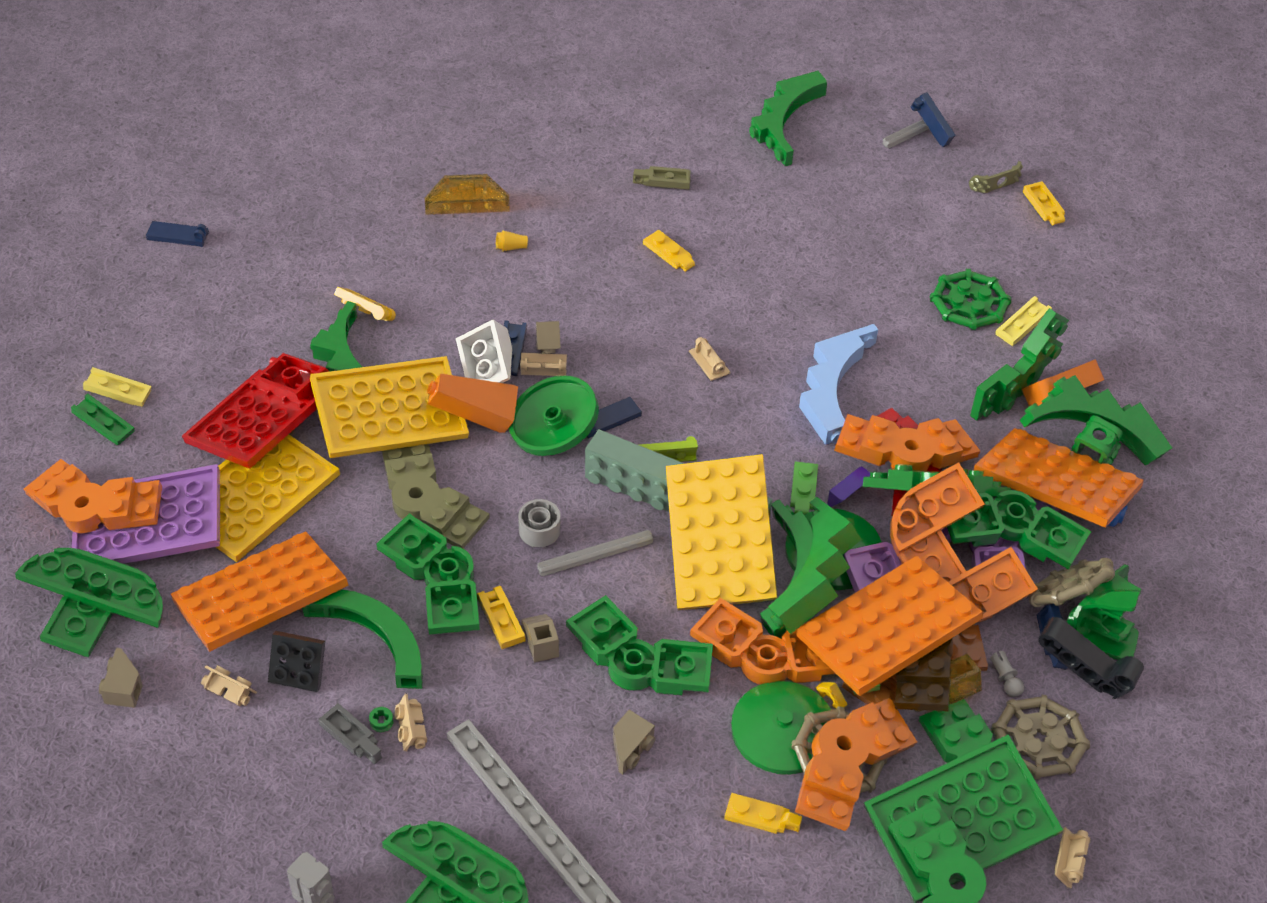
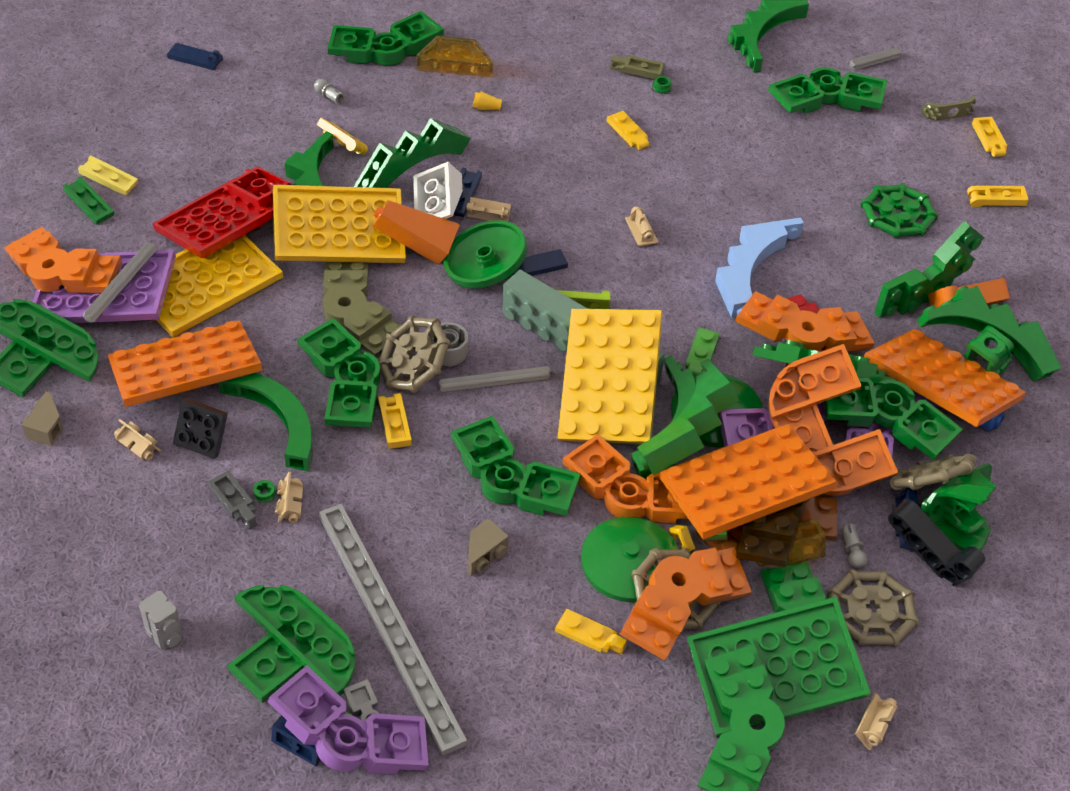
camera: 10 degrees right, 0 degrees up
(167, 511) = (119, 282): none -> light grey axle
(335, 252) = (329, 91): none -> light grey pin
(406, 180) = (387, 48): none -> green plate
(448, 308) = (390, 162): none -> green arch
(495, 534) = (428, 356): none -> dark tan plate
(541, 637) = (425, 444): dark tan slope -> none
(547, 336) = (496, 185): dark tan slope -> none
(693, 194) = (662, 84): none -> green plate
(847, 486) = (739, 356): dark purple slope -> none
(867, 173) = (829, 87): none -> green plate
(933, 119) = (900, 48): dark blue hinge -> none
(1022, 321) = (934, 240): light yellow hinge -> none
(1066, 268) = (997, 196): none -> yellow plate

